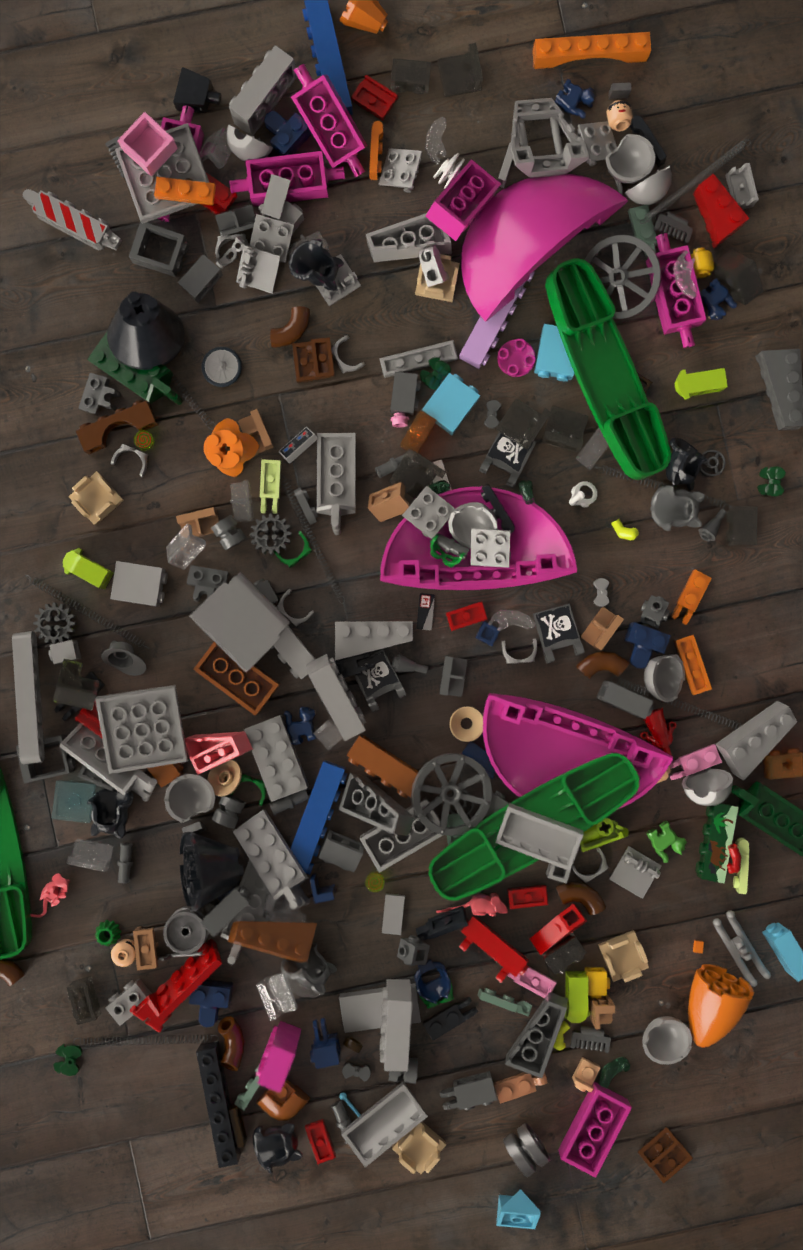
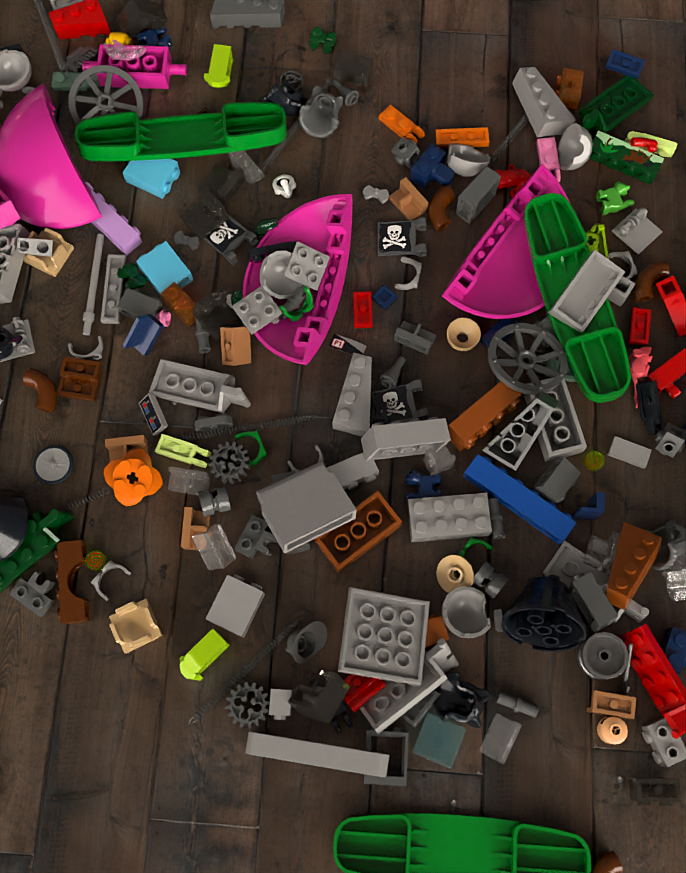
camera: 70 degrees left, 15 degrees down
(53, 893) = (530, 790): coral animal -> none
(112, 928) = (579, 744): green piece -> none
(214, 749) = (425, 570): coral wedge -> none
(273, 859) = (547, 547): light grey hinge -> none
(374, 408) = (143, 333): none -> dark blue panel
(381, 344) = (88, 316): none -> light grey bar
(512, 617) = (375, 274): clear piece -> none
(516, 357) = (144, 207): dark pink dish -> none
(623, 532) = (328, 162): neon yellow arm -> none
(652, 188) = (41, 61): light grey cylinder -> none

